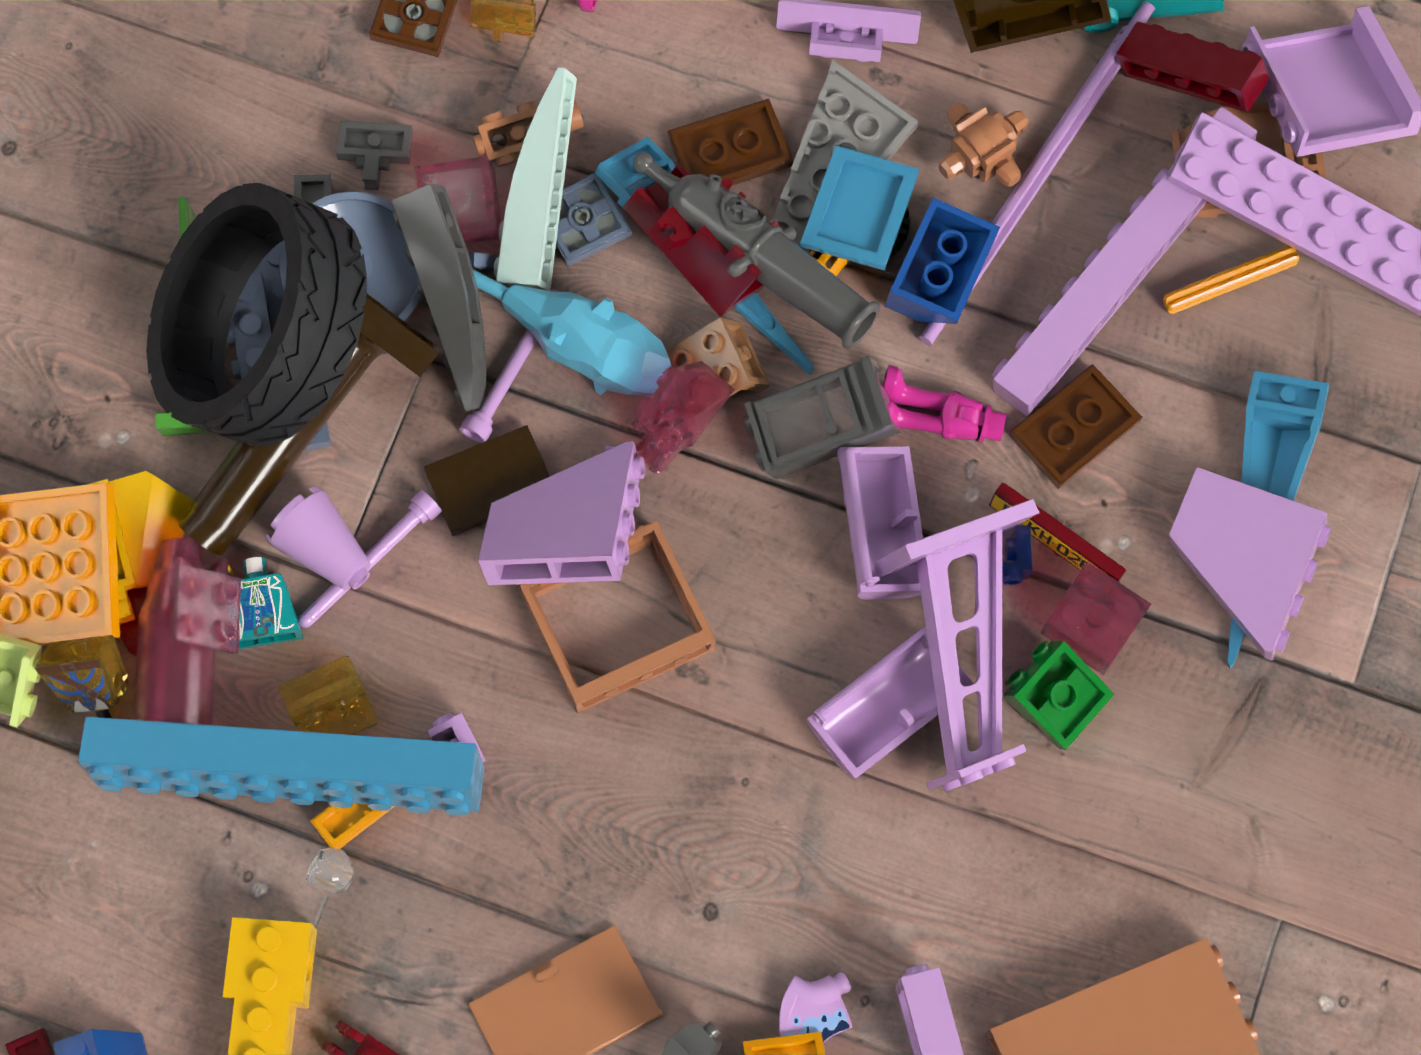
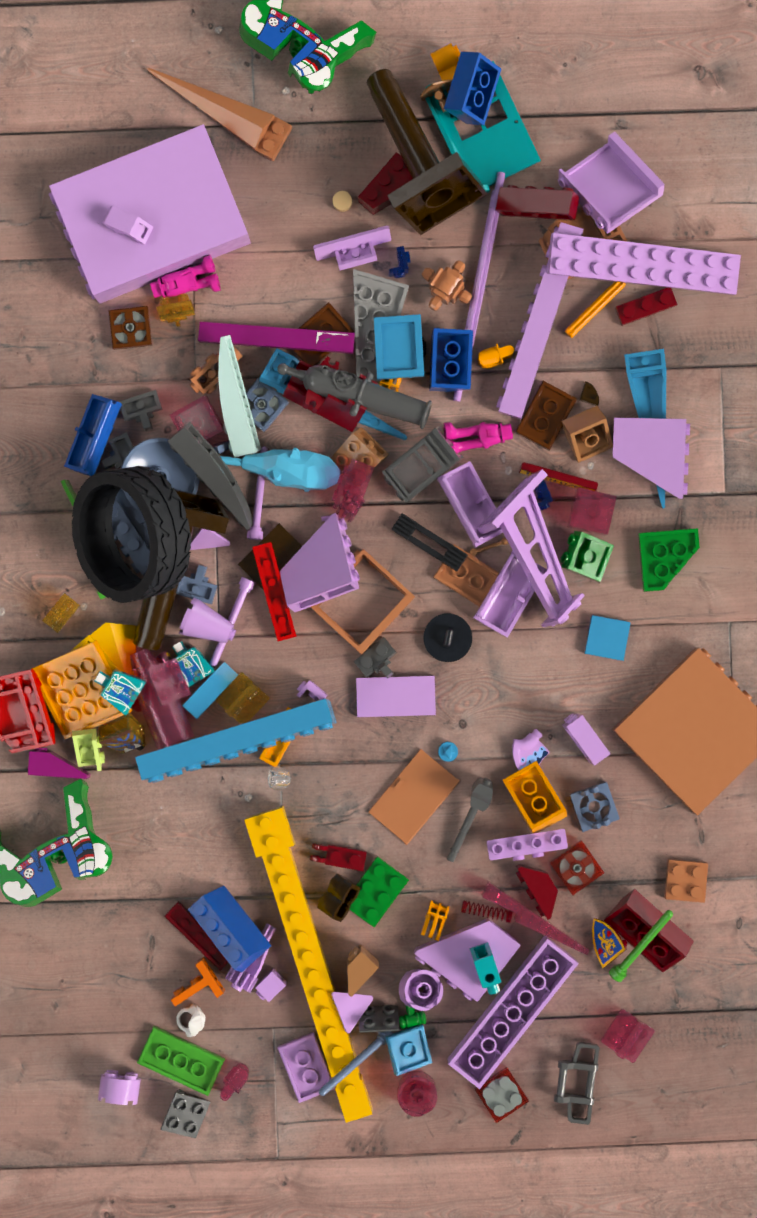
camera: 20 degrees left, 15 degrees up
(77, 427) = (61, 613): none -> clear yellow hips
(114, 581) = (120, 689): none -> torso
(274, 664) = (210, 690): none -> dark azure slope
(278, 148) = (92, 435): none -> blue container
(335, 474) = (197, 586): none -> sand blue hinge
(389, 402) = (208, 539): none -> lavender piece
(465, 535) = (274, 591): none -> red plate
(601, 728) = (376, 659): none -> dark grey hinge
(607, 810) = (395, 696): none -> lavender tile
(662, 950) = (448, 751): none -> dark azure tile
(663, 122) = (278, 337): none -> magenta tile
(746, 742) = (447, 637): none -> black shield
(812, 600) = (453, 556): none -> black container
(822, 642) = (470, 581): none -> nougat tile
(853, 611) = (473, 552): none -> medium nougat hinge
(915, 93) = (403, 260): none -> clear blue bracket
(1023, 290) = (494, 356): none -> light orange arm
(1040, 858) = (607, 638): none -> dark azure tile
(1139, 482) = (587, 433): none -> medium nougat slope
(1166, 420) = (589, 394): none -> dark brown tile
(1202, 750) = (665, 555): none -> green plate
(1322, 310) = (646, 306): none -> dark red plate

